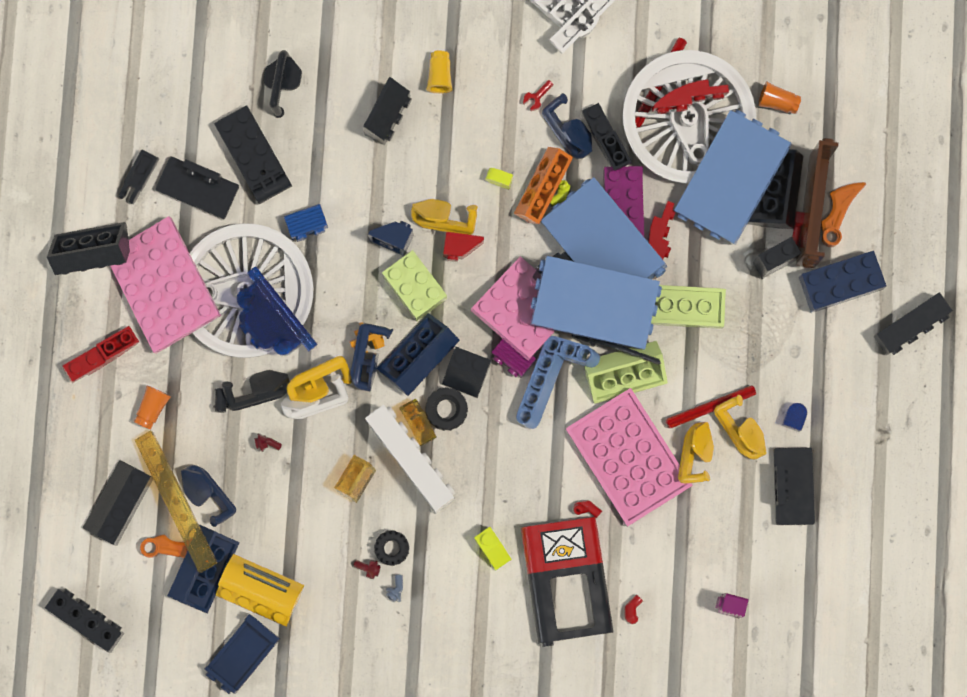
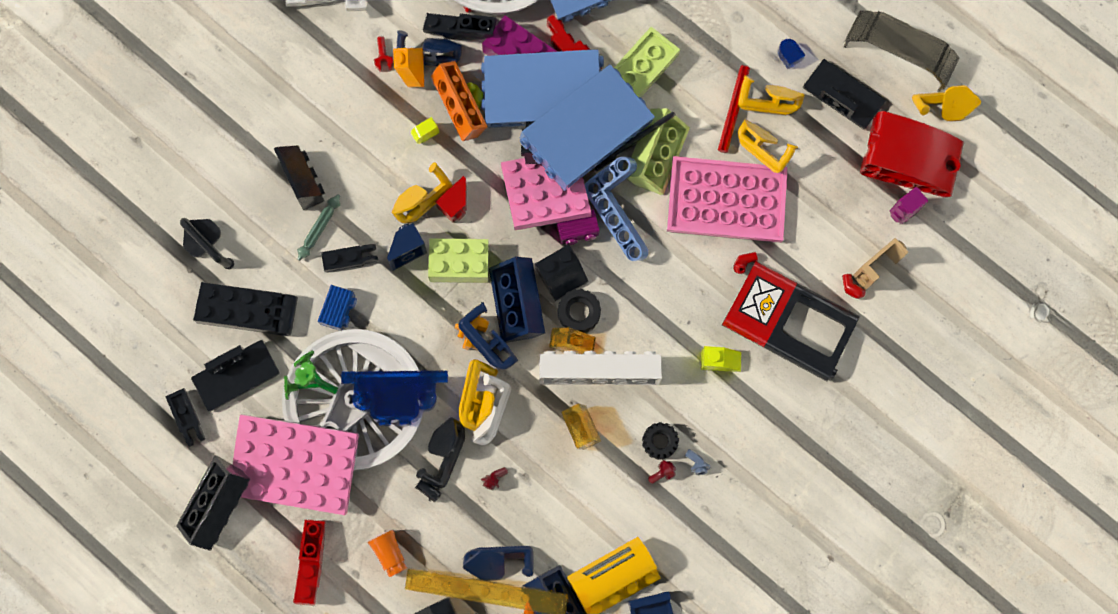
camera: 55 degrees left, 5 degrees down
(231, 243) = (304, 375): none -> bright green plant
(352, 198) = (347, 257): none -> black hinge
(361, 157) = (318, 227): none -> sand green wheel
(439, 73) = (303, 113): yellow plant -> none
(542, 124) = (410, 65): none -> light orange slope
(647, 609) = (866, 275): none -> tan panel
(780, 579) = (912, 154): none -> red panel
(855, 582) = (956, 102): none -> yellow piece
(870, 505) = (905, 42): none -> clear smoke windscreen

